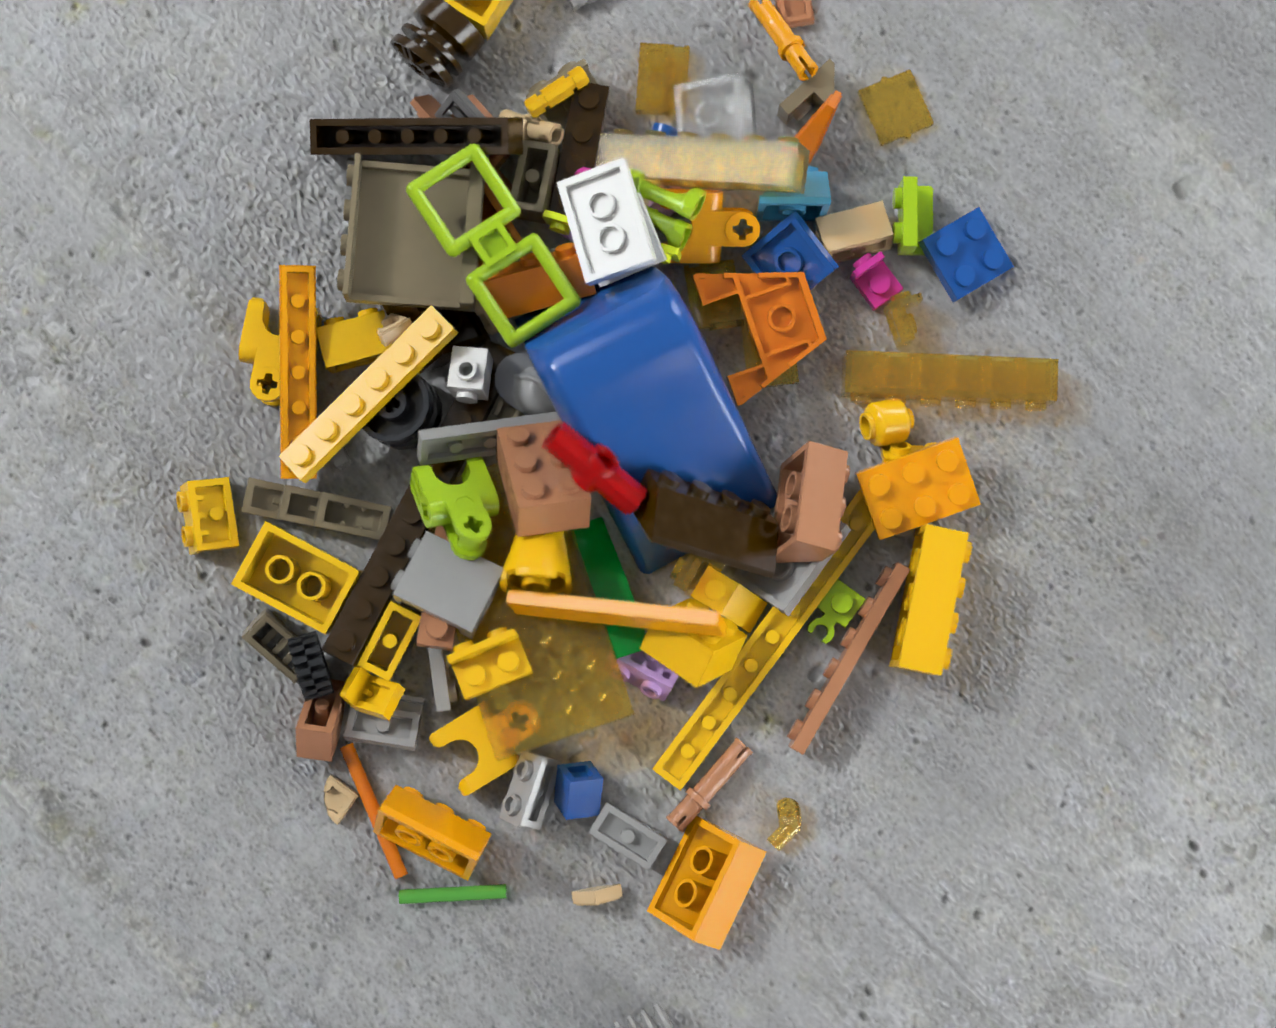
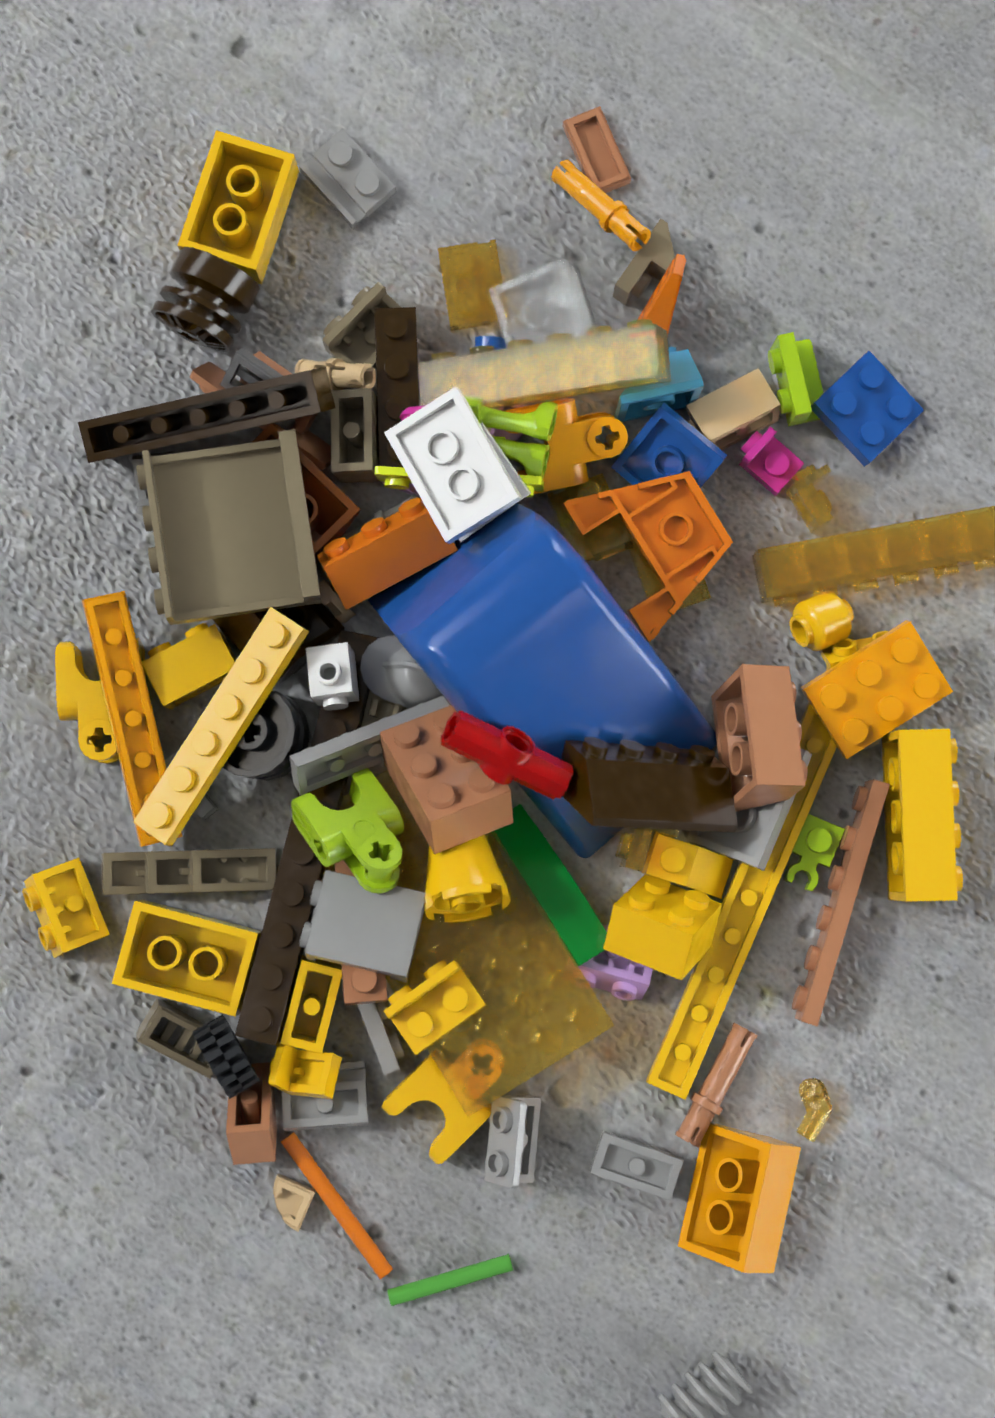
camera: 20 degrees left, 0 degrees up
(392, 328) = (231, 643): tan tile -> none
(431, 831) = (412, 1214): light orange slope -> none
(493, 245) = (327, 521): lime bar -> none
(556, 92) = (356, 327): yellow axle -> none
(578, 790) = (567, 1126): blue panel -> none
(597, 895) = (617, 1242): tan tile -> none
(617, 613) = (570, 915): light orange tile -> none
(895, 107) = (746, 258): clear yellow piece -> none

